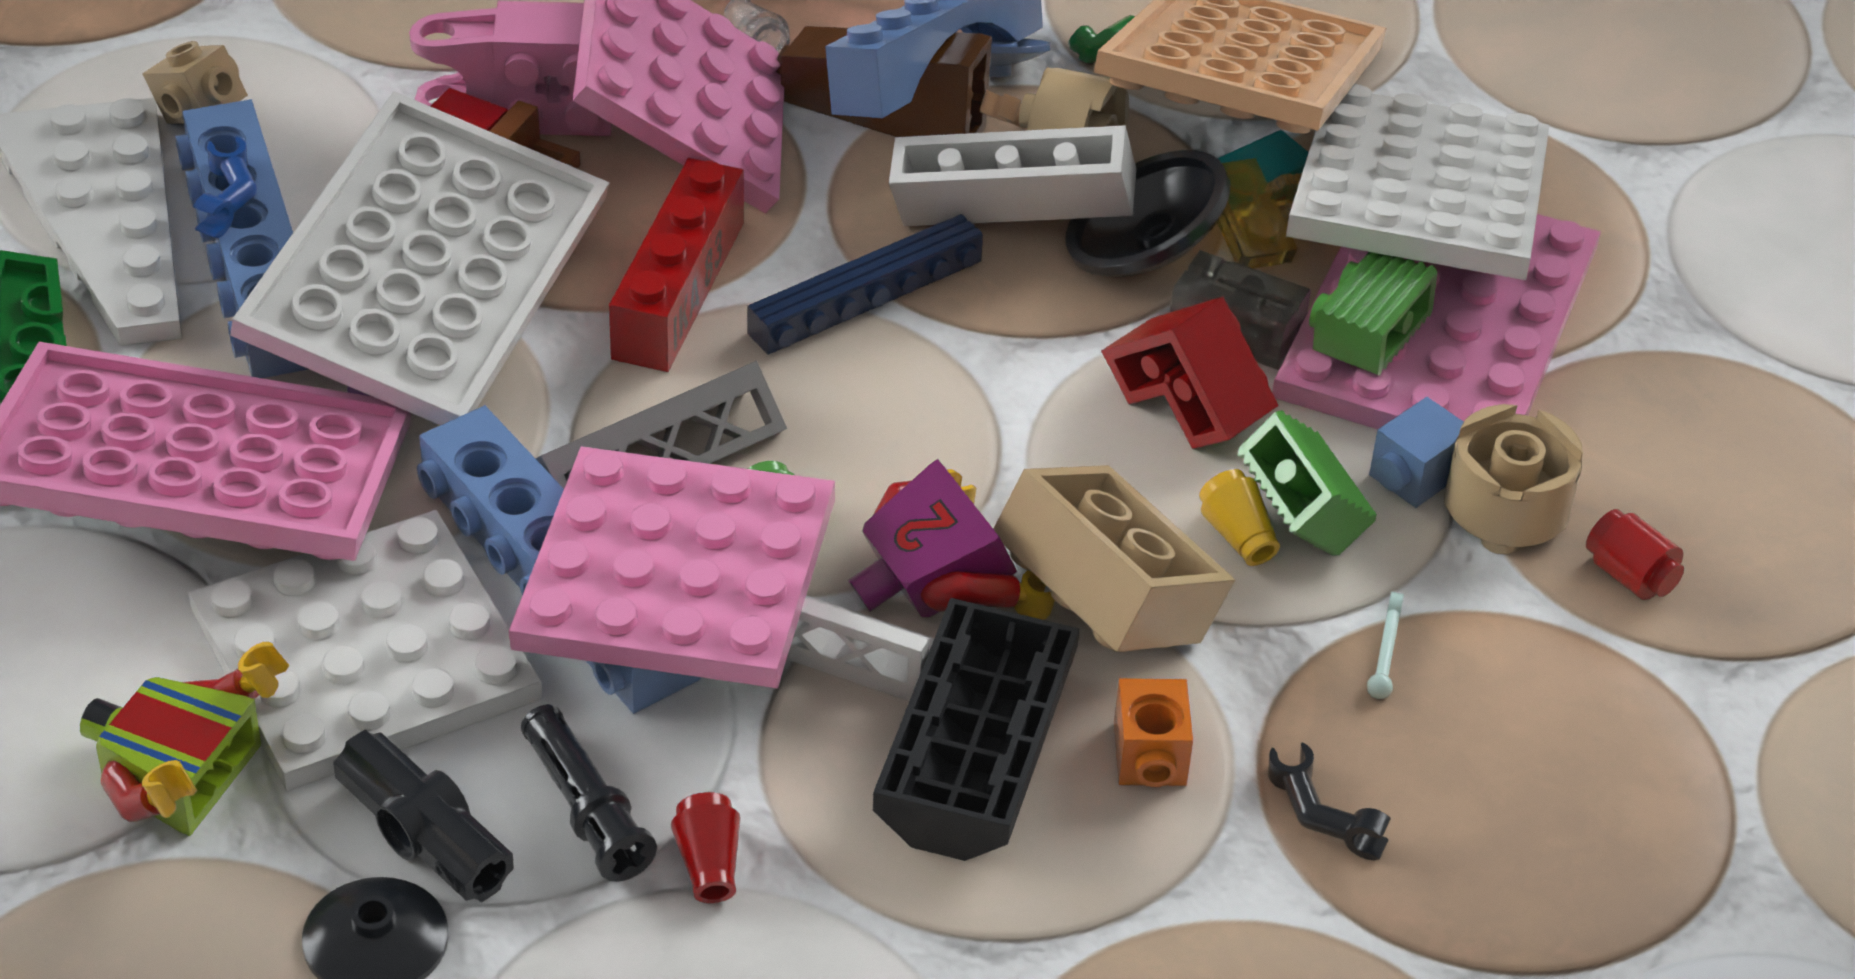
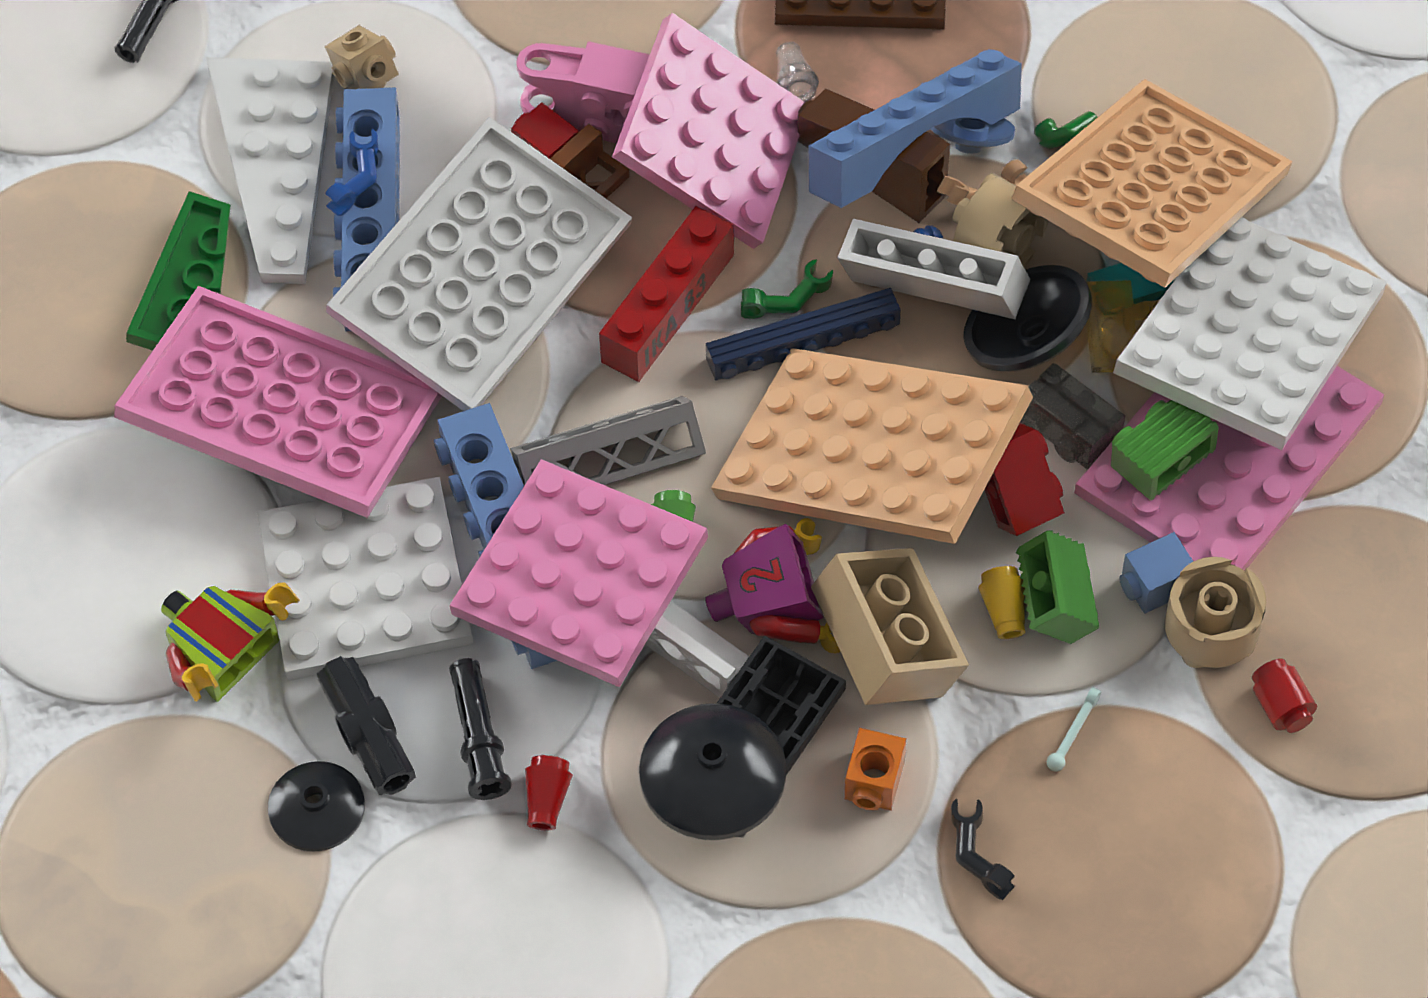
camera: 20 degrees right, 15 degrees up
(825, 258) = (757, 303): none -> green arm
(942, 765) = (718, 795): none -> black dish
(1013, 362) = (873, 444): none -> light nougat plate

